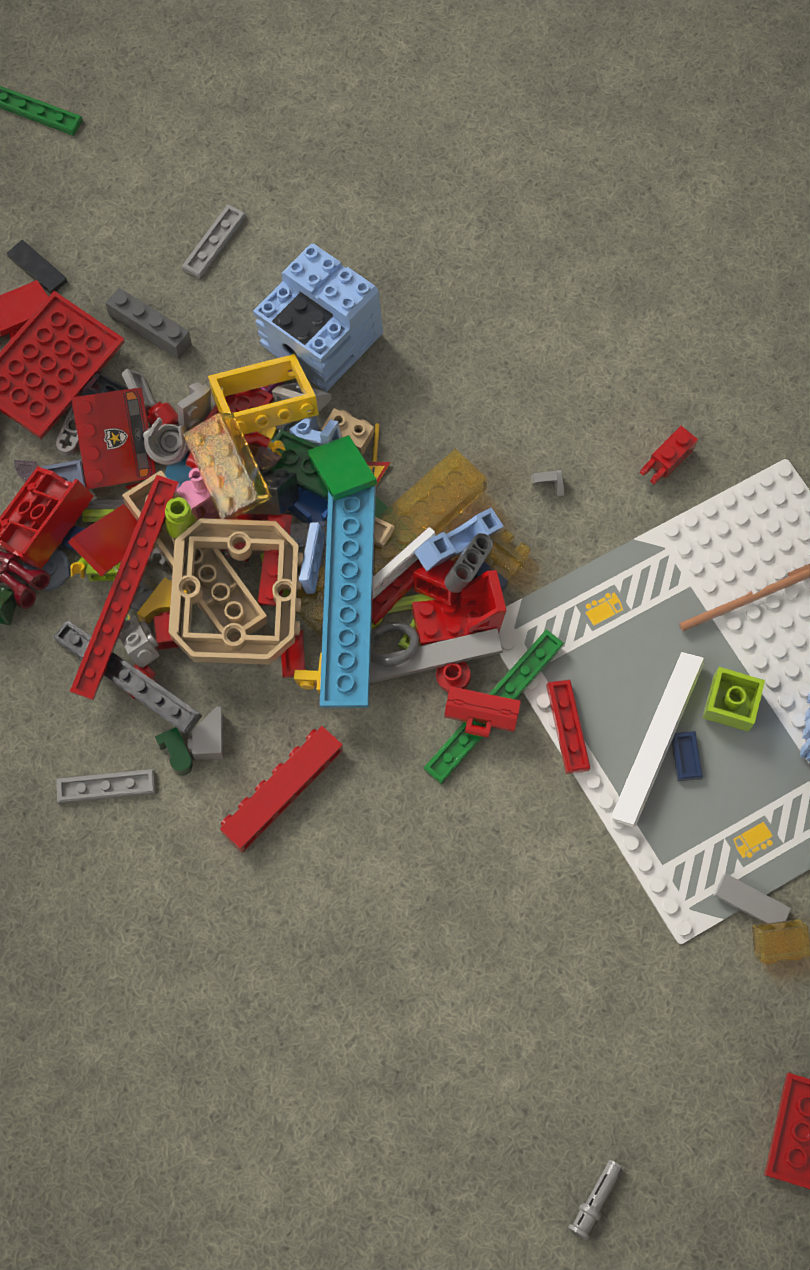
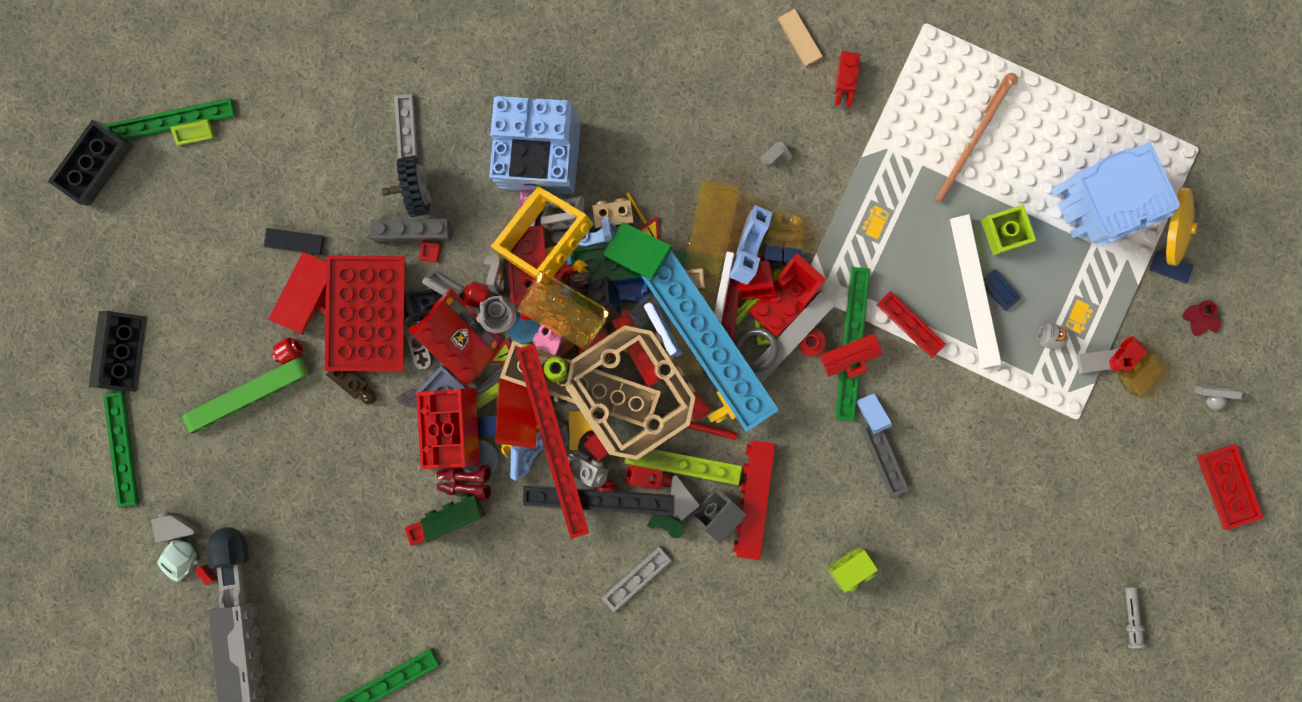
camera: 30 degrees left, 15 degrees up
(25, 122) = (192, 132): none -> lime tile
(87, 589) = (523, 457): none -> light blue tile
(151, 355) = (429, 252): none -> red tile
(178, 282) = (411, 186): none -> black wheel
(185, 681) = (640, 477): none -> red torso
(231, 774) = (718, 515): none -> dark grey brick
(239, 709) = (689, 466): none -> lime plate
(288, 691) = (712, 430): none -> red bar
(326, 924) = (852, 570): none -> lime brick
(444, 840) = (885, 461): none -> dark grey plate
(466, 786) = (874, 413): none -> light blue tile
(468, 563) = (774, 267): dark grey beam -> none
(650, 394) = (800, 38): none -> tan tile
(708, 835) = (1052, 336): none -> light grey head
(779, 908) = (1127, 355): none -> red piece

